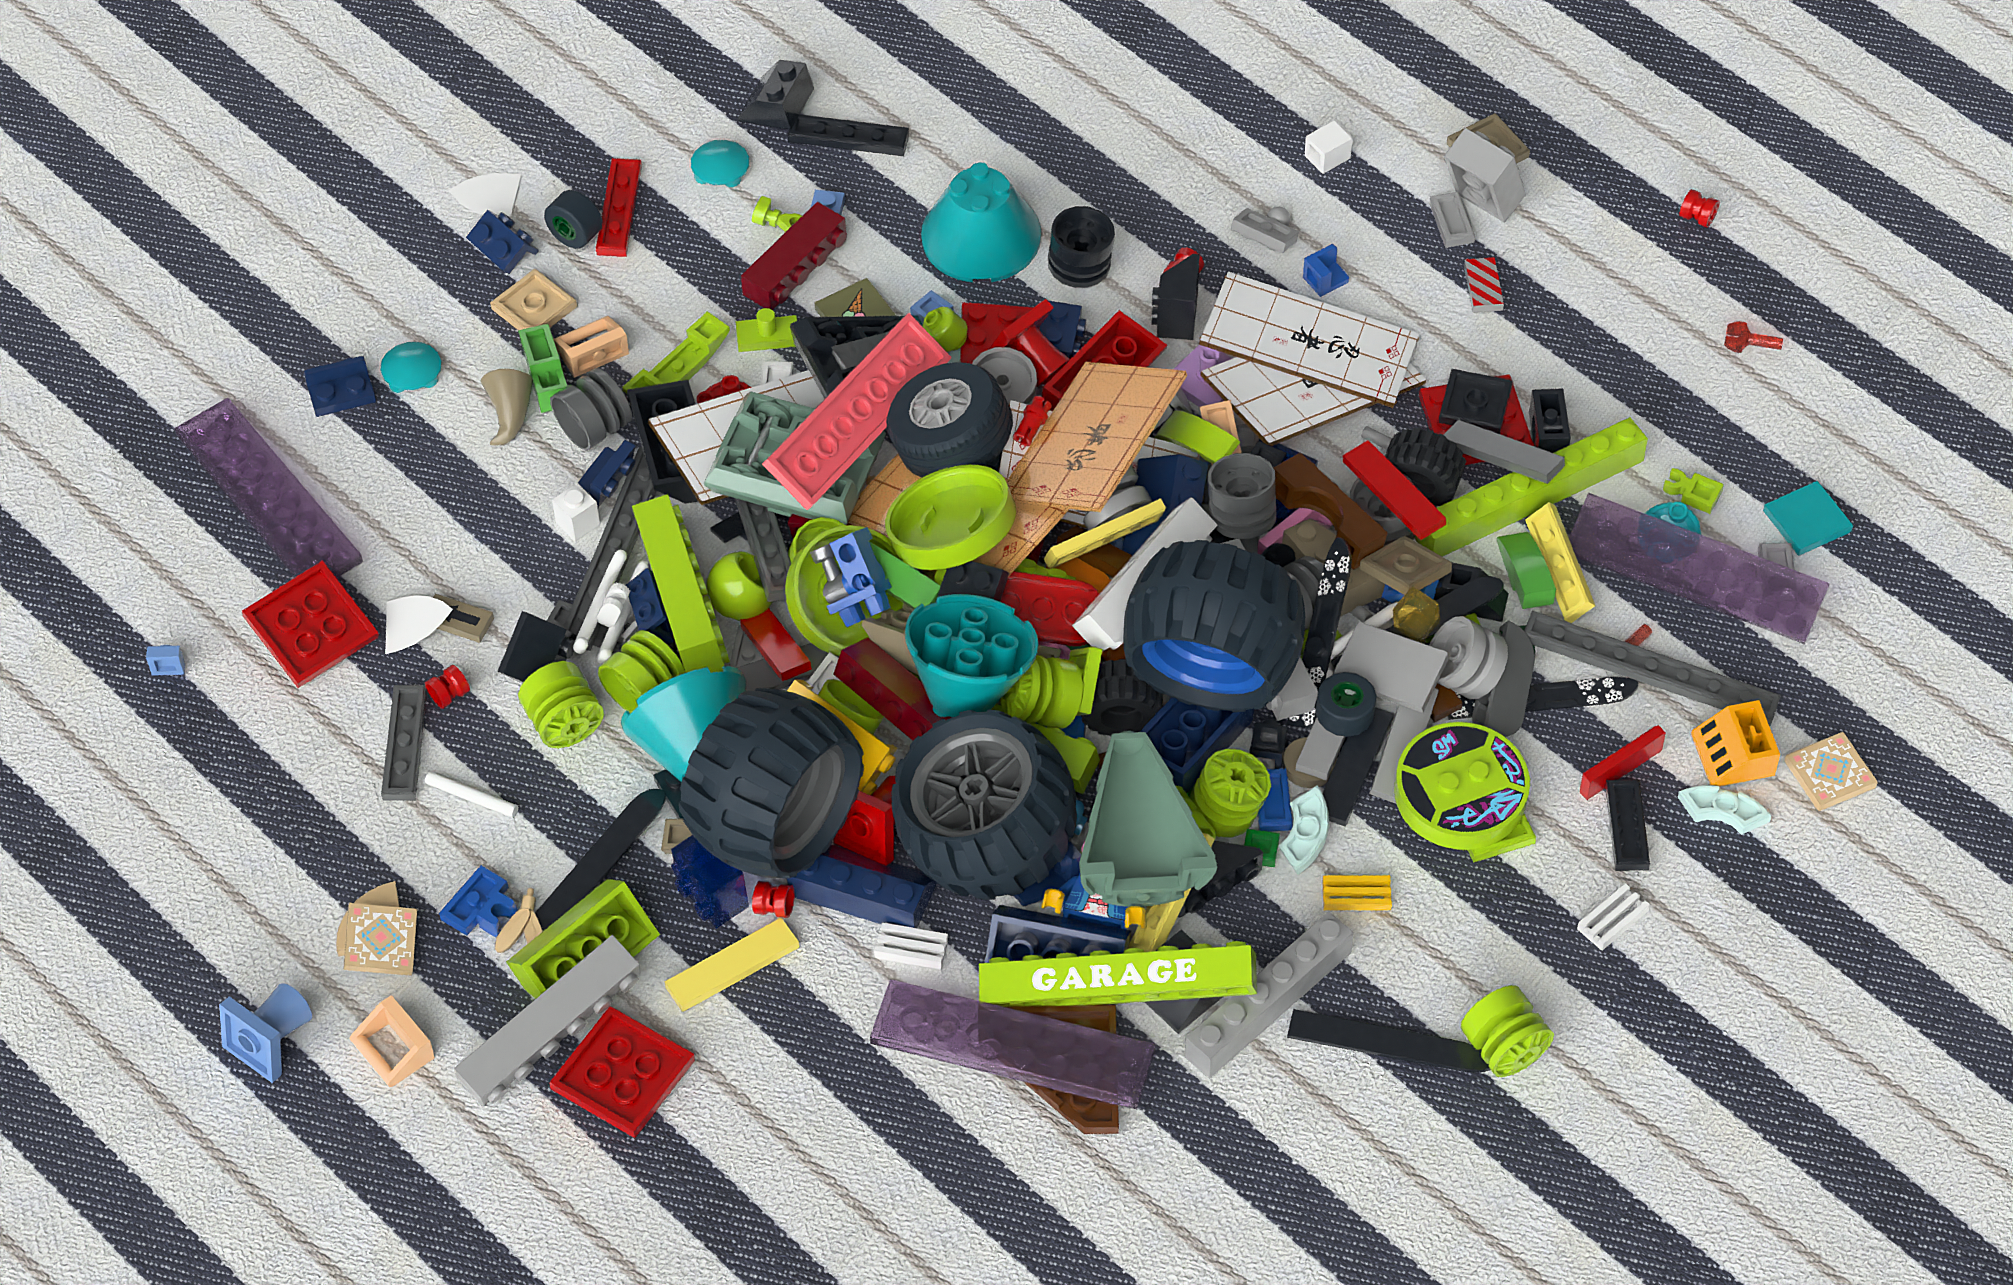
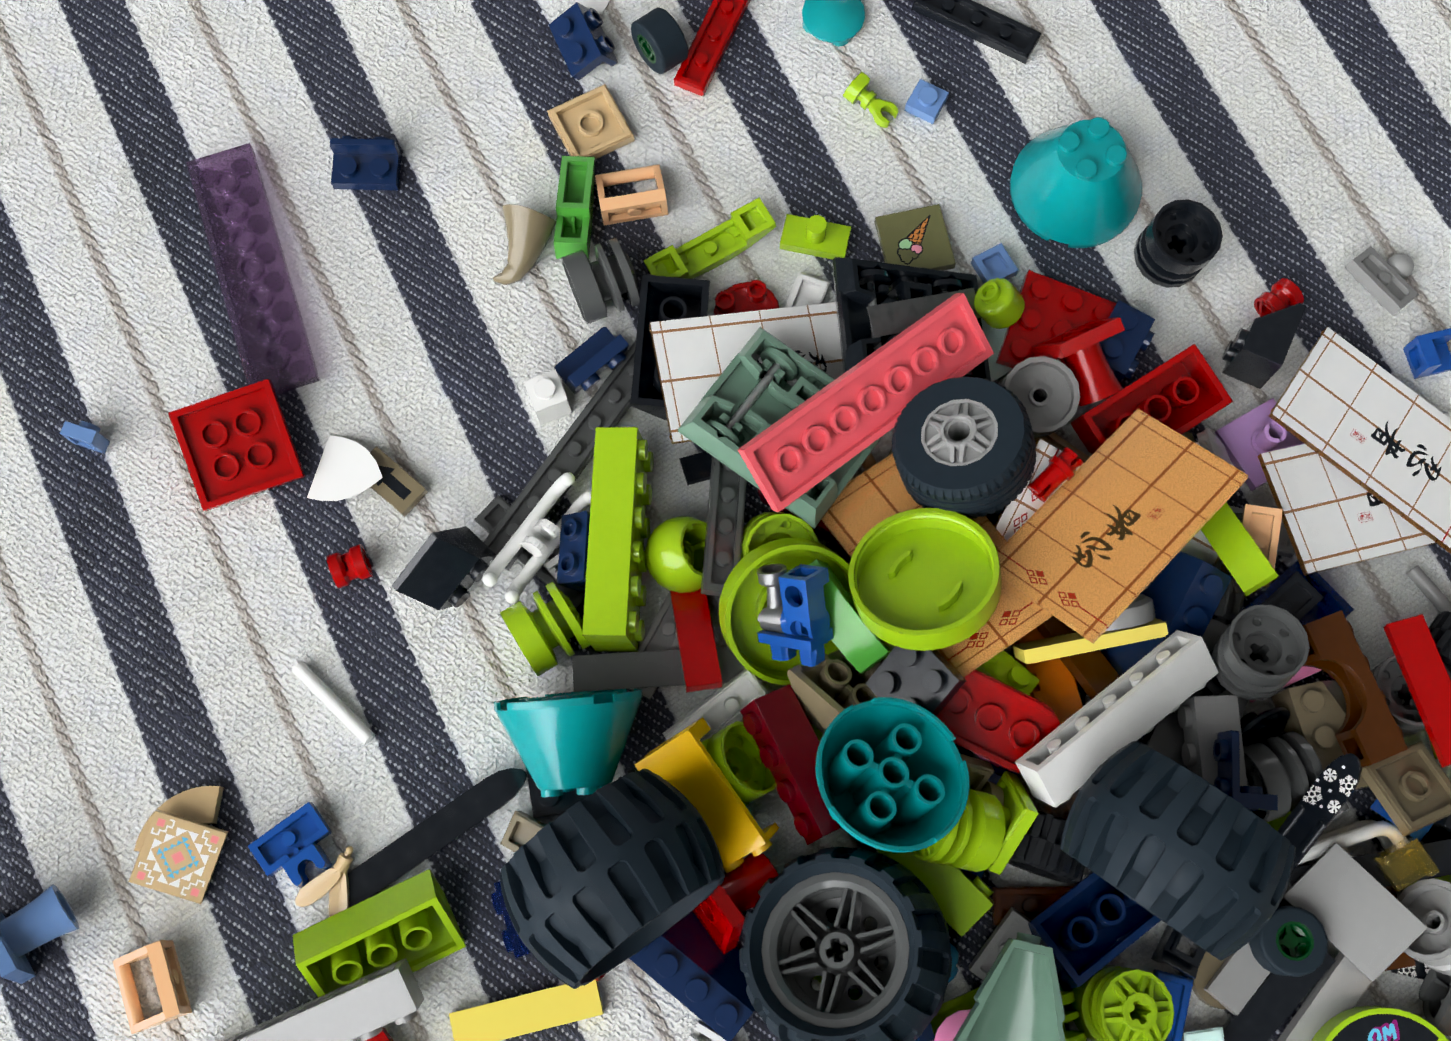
camera: 20 degrees right, 20 degrees up
(404, 743) = (287, 615): dark grey tile -> none
(411, 366) = (444, 161): teal dish -> none
(560, 704) = (449, 633): lime wheel -> none
(794, 256) = (872, 155): dark red brick -> none

